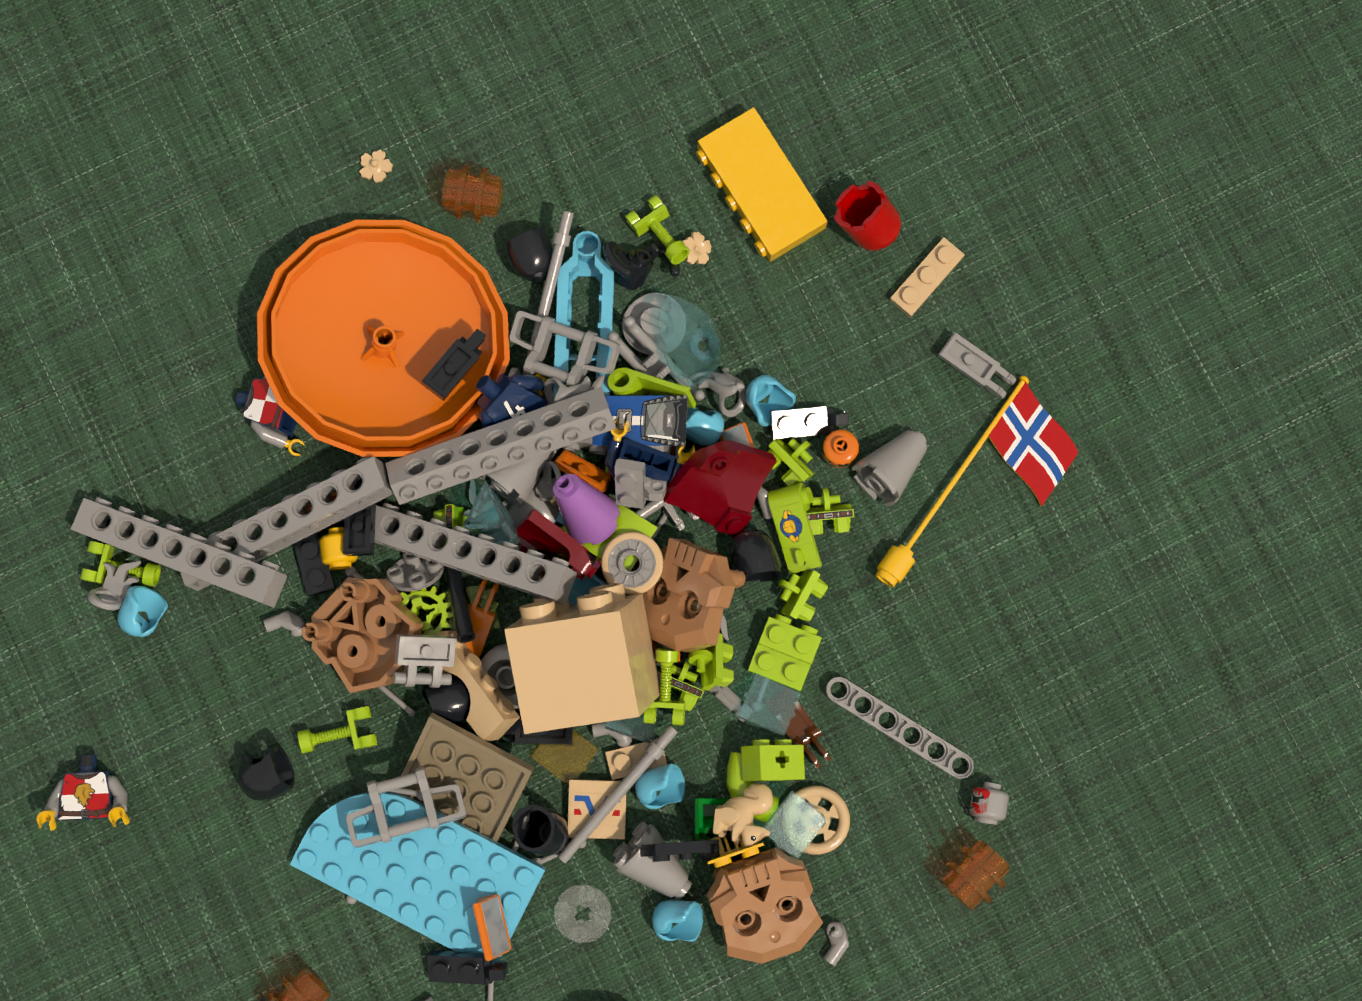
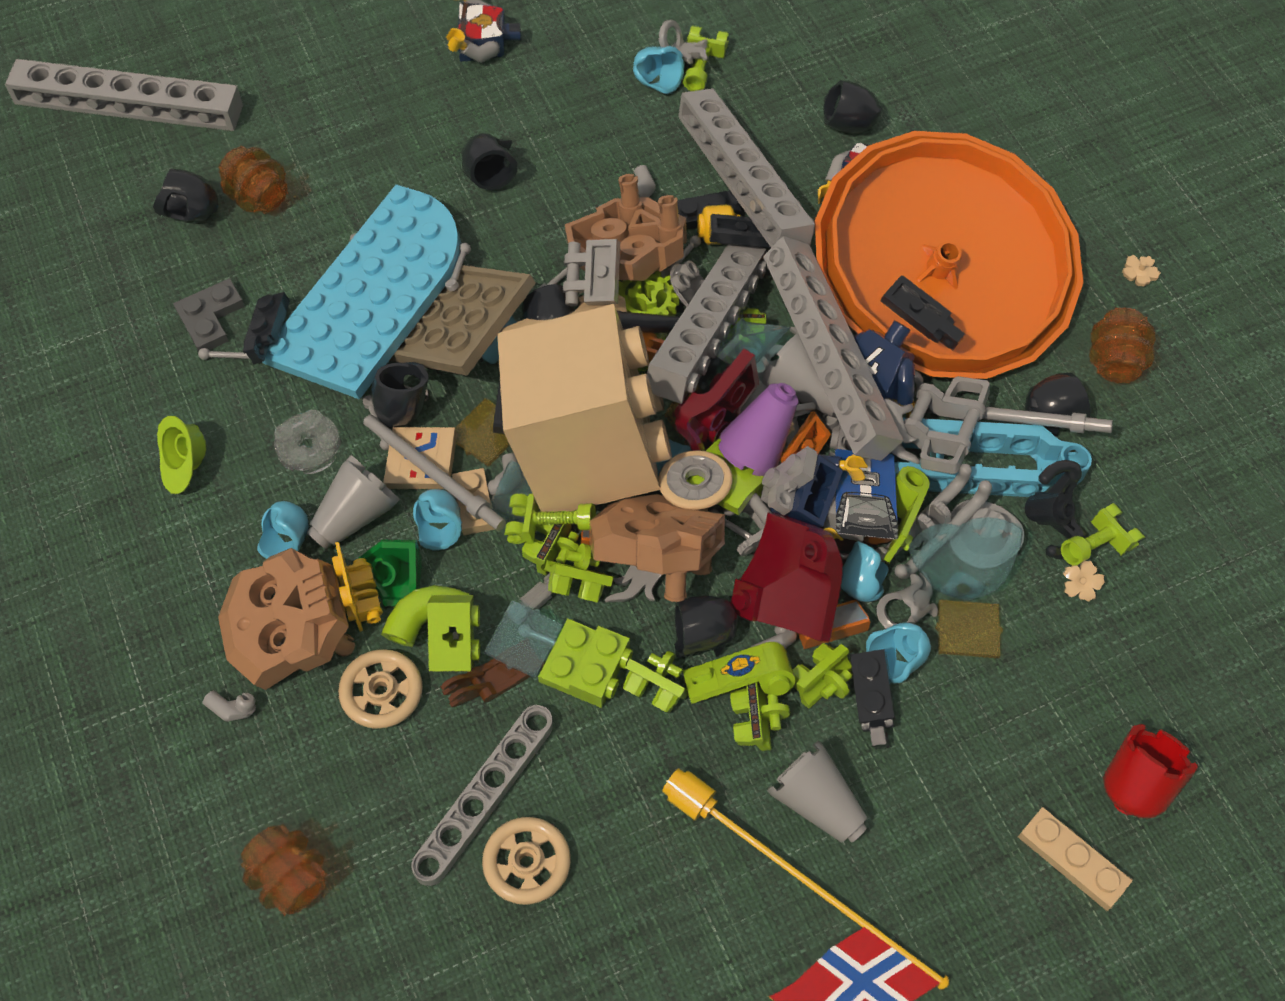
camera: 95 degrees right, 20 degrees down
(92, 522) = (712, 85): light grey brick -> none
(197, 413) = (856, 109): none -> black piece
(308, 740) = (520, 200): lime bar -> none
(388, 832) = (440, 237): light grey bar -> none
(492, 926) = (300, 339): slope -> none
(685, 850) = (357, 523): black hinge -> none
(738, 815) = (389, 585): tan animal -> none
(740, 343) = (969, 628): none -> clear yellow piece
(760, 185) = (1172, 654): yellow brick -> none
(794, 825) = (374, 655): clear light blue piece -> none
(841, 458) = (840, 731): orange head -> none
(974, 685) = (530, 891): none -> tan plate
(975, 364) = (961, 912): light grey hinge -> none
(989, 803) = (374, 898): light grey head -> none

